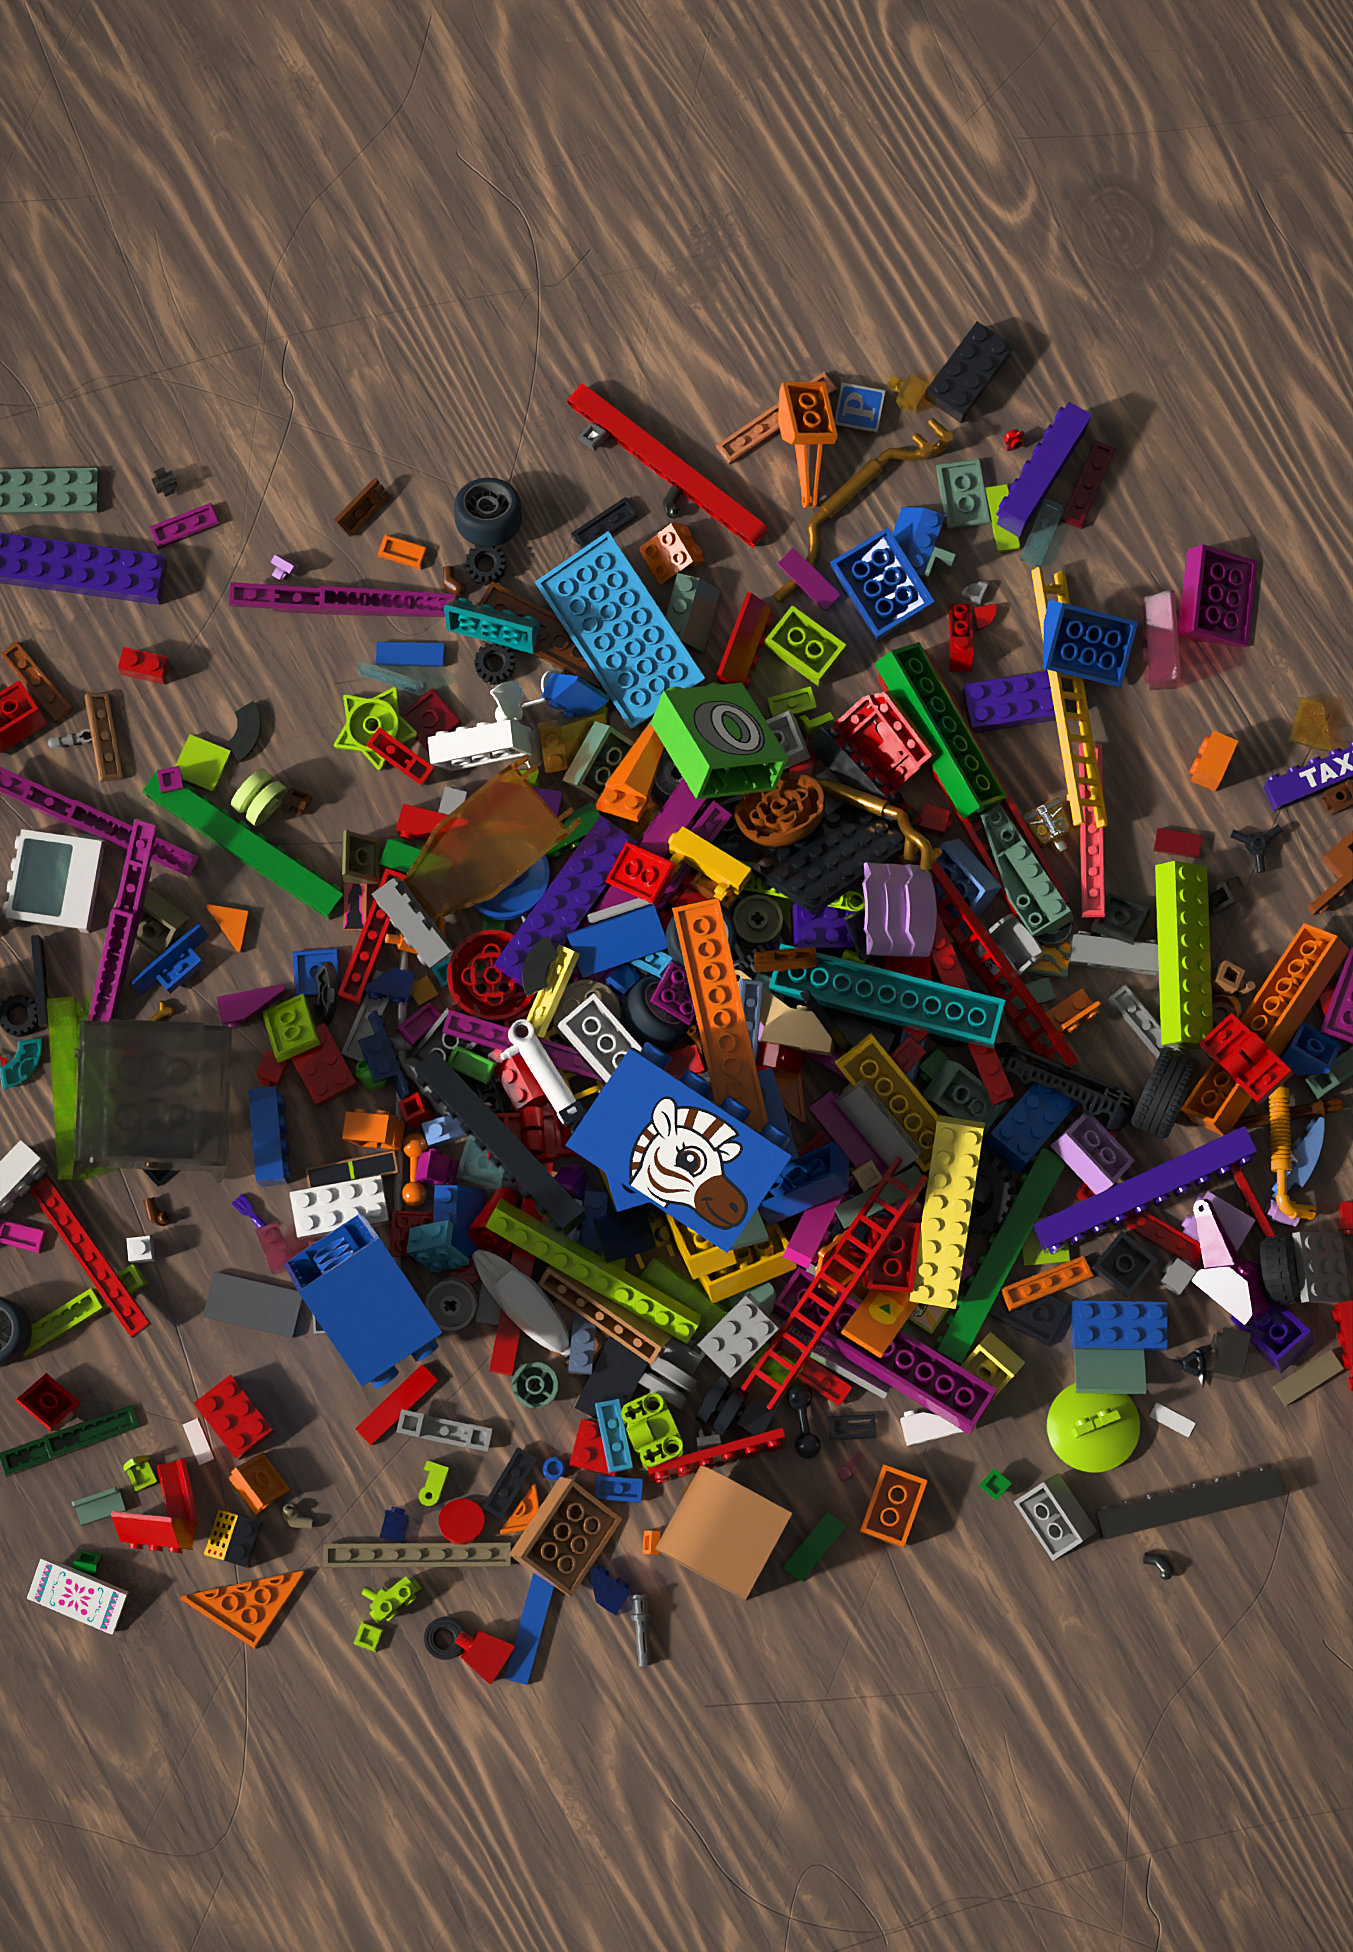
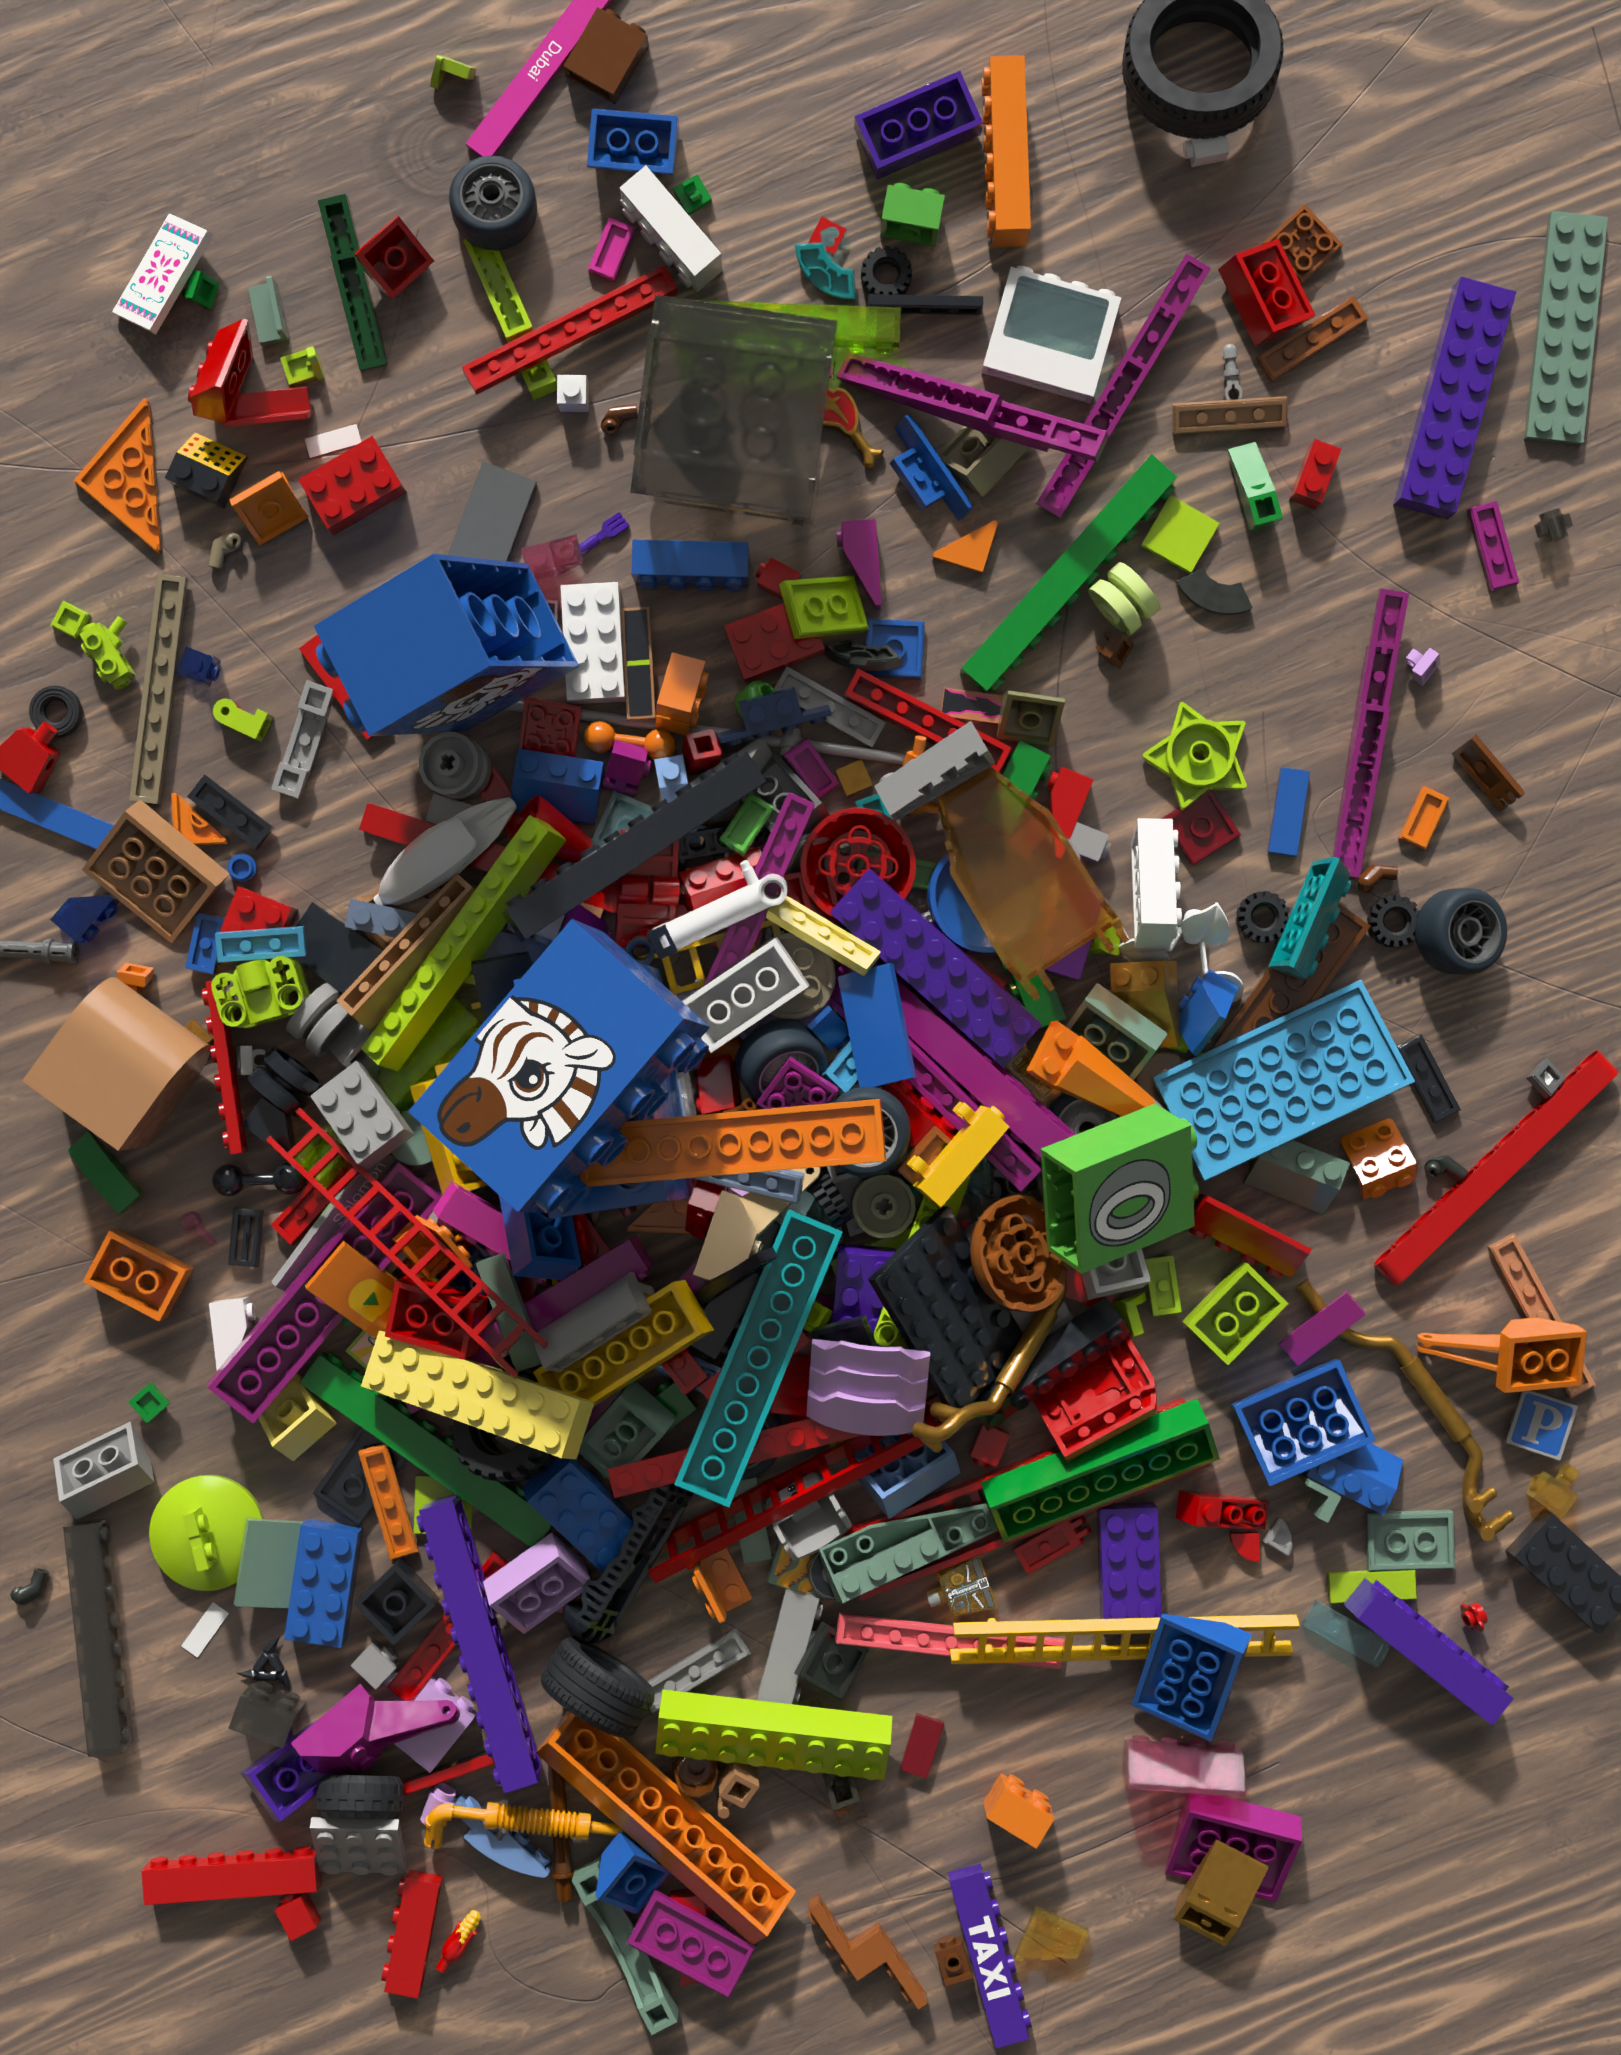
camera: 100 degrees right, 10 degrees up
(158, 710) = (1255, 487): none -> slope
(170, 779) = (1160, 489): magenta tile -> none
(389, 677) = (1260, 782): clear light blue tile -> none
(392, 984) = (862, 739): clear blue slope -> none
(400, 756) = (1154, 782): red slope -> none
(433, 1248) = (527, 750): medium azure bracket -> none
(461, 1521) = (190, 747): red tile -> none
(536, 965) = (855, 919): pearl dark grey tile -> none
(539, 1374) = (327, 853): sand green cylinder -> none
(616, 910) = (915, 1037): light grey tile -> none
(641, 873) = (955, 1067): tile -> none
(785, 959) = (818, 1235): reddish brown hinge -> none
(867, 1175) = (537, 1300): tan tile -> none
(1005, 763) = (1051, 1544): none -> red hinge
(1088, 484) = (1403, 1701): dark red tile -> none
(1245, 1058) = (623, 1796): red plate -> none
(1253, 601) = (1219, 1893): none -> pearl gold slope
(1257, 844) = (906, 1846): black piece -> none
(1308, 1377) = (233, 1804): dark tan tile -> none

